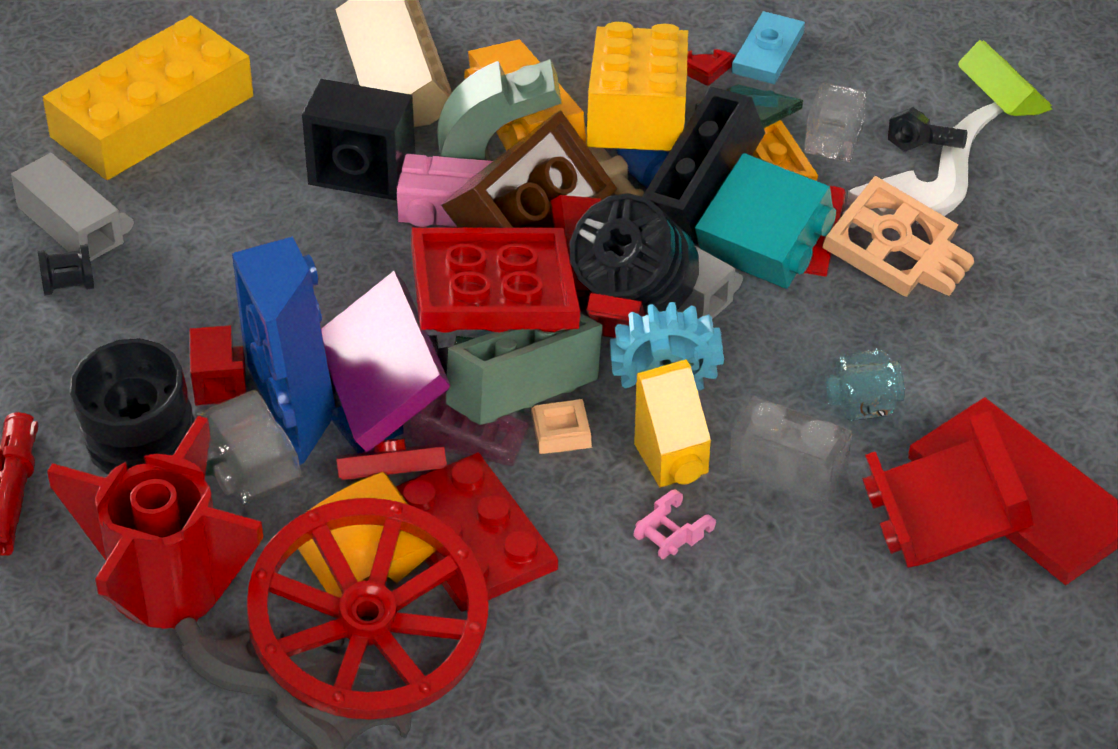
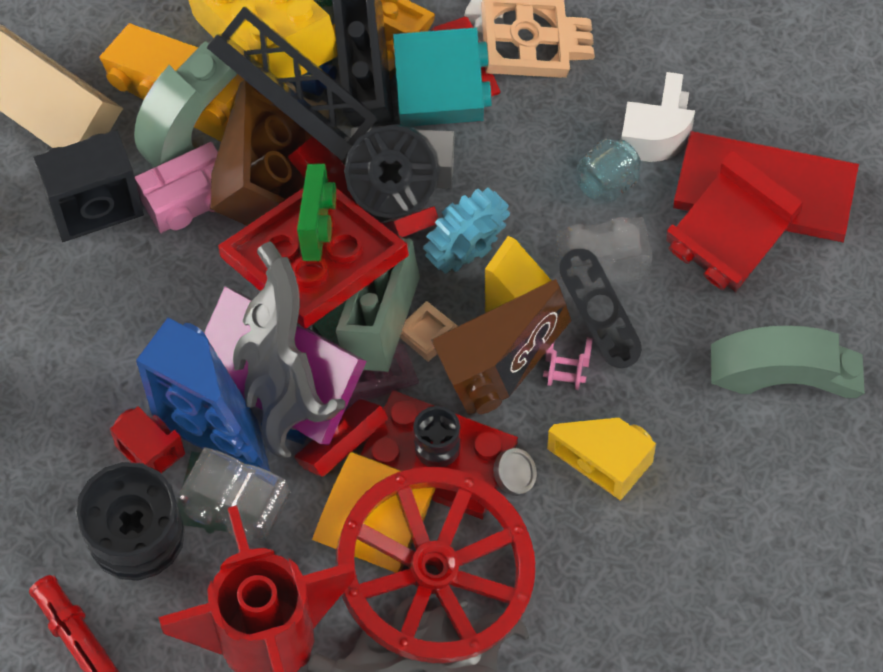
camera: 35 degrees left, 15 degrees up
(373, 342) = (275, 366): none -> dark grey piece
(469, 499) = (437, 425): none -> black wheel
(514, 237) = (314, 222): none -> green plate
(527, 585) = (515, 471): none -> flat silver piece
(580, 133) = (282, 95): none -> black fence
(603, 458) = (500, 348): none -> reddish brown slope
(631, 618) = (604, 451): none -> yellow slope
(754, 449) = (605, 342): none -> black beam
(901, 640) = (786, 356): none -> sand green arch
(950, 380) = (660, 130): none -> white brick

